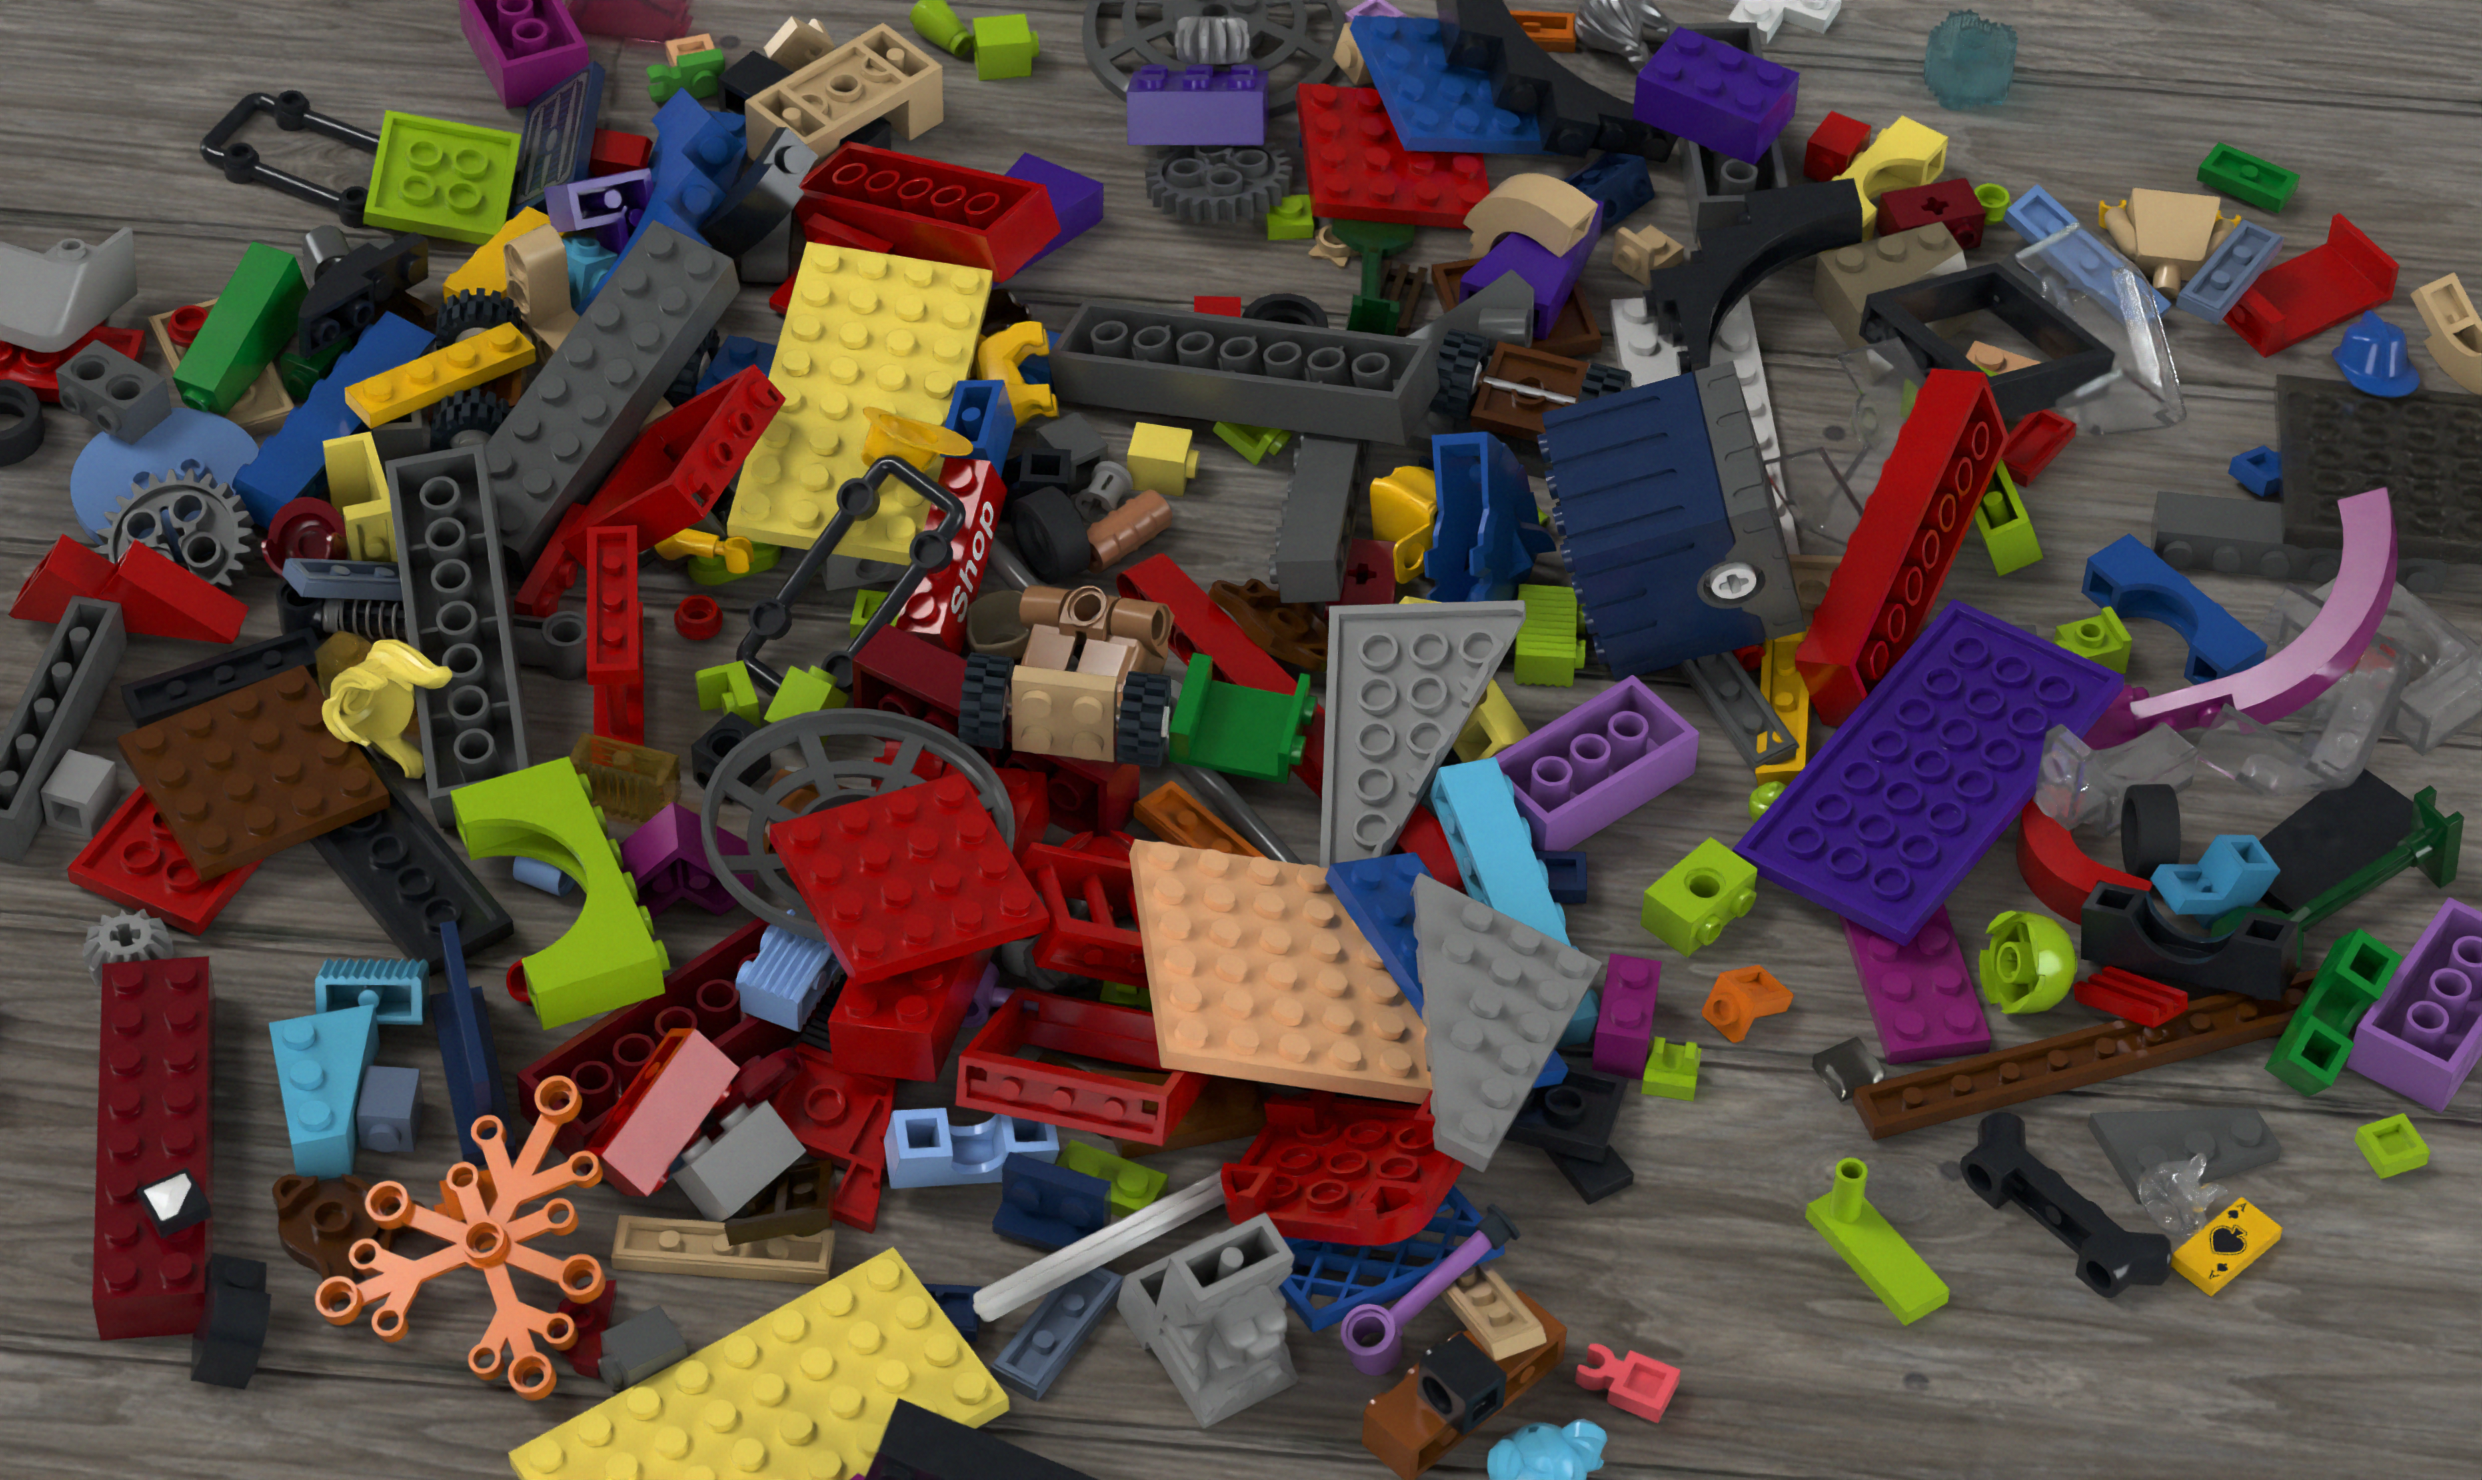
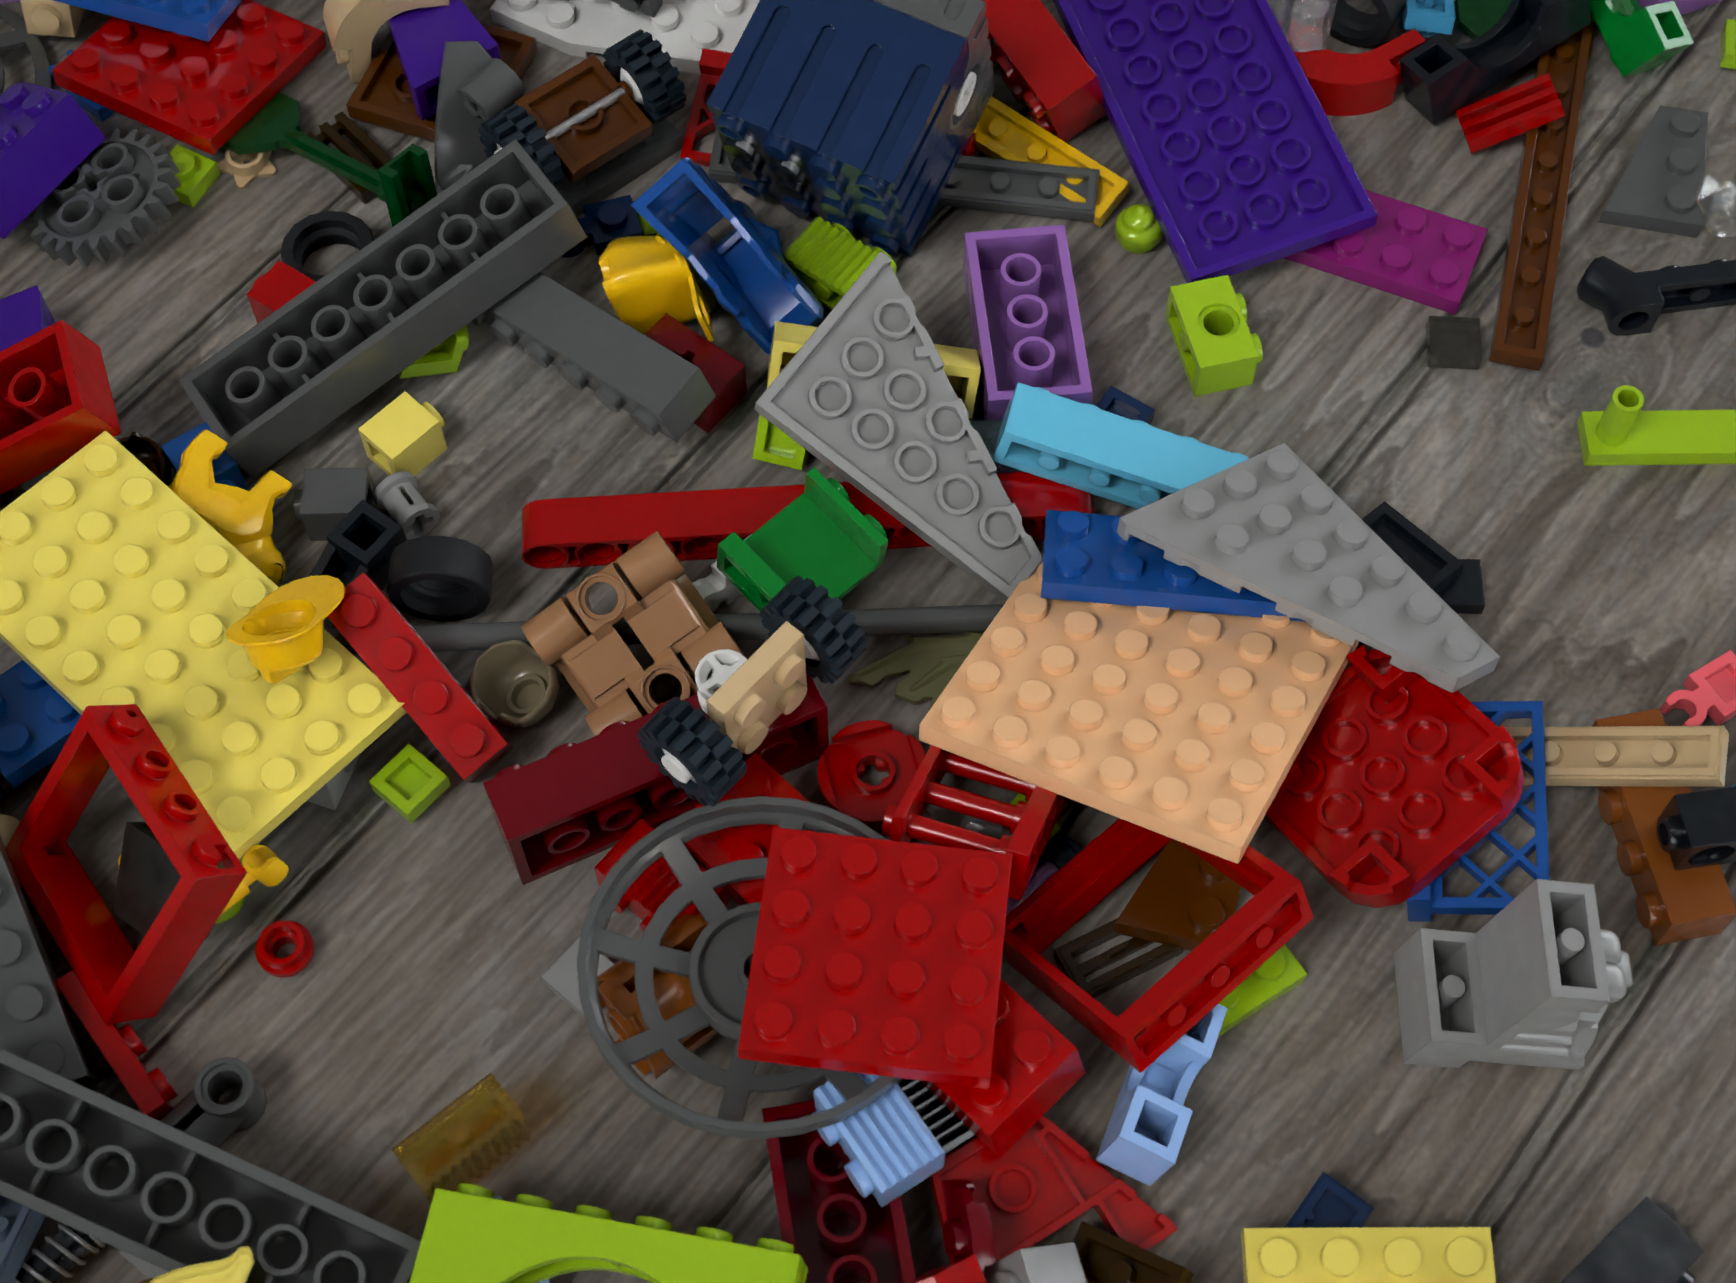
camera: 55 degrees left, 15 degrees up
(615, 633) = (289, 1045): red fence -> none
(671, 862) = (618, 1151): magenta brick -> none
(716, 744) = (492, 1000): black brick -> none
(728, 688) = (427, 969): lime bracket -> none
(805, 693) = (491, 913): lime brick -> none
(857, 501) = (319, 717): black bar -> none
(984, 417) = (275, 550): blue brick -> none
(1050, 1203) = (1267, 1055): dark blue bracket -> none
(1056, 1332) = (1392, 1129): sand blue tile -> none
(1099, 1248) = (1341, 1043): white axle -> none
(1127, 529) = (465, 505): nougat axle -> none
(1187, 823) = (899, 668): orange tile -> none
(1282, 629) = (691, 464): reddish brown tile -> none
(1491, 1232) = (1595, 868): medium lavender piece -> none
(1626, 1016) = (1324, 450): magenta brick -> none
(1671, 1070) = (1379, 465): lime tile -> none
(1742, 997) = (1345, 370): orange bracket -> none
(2027, 963) = (1438, 159): lime cylinder -> none

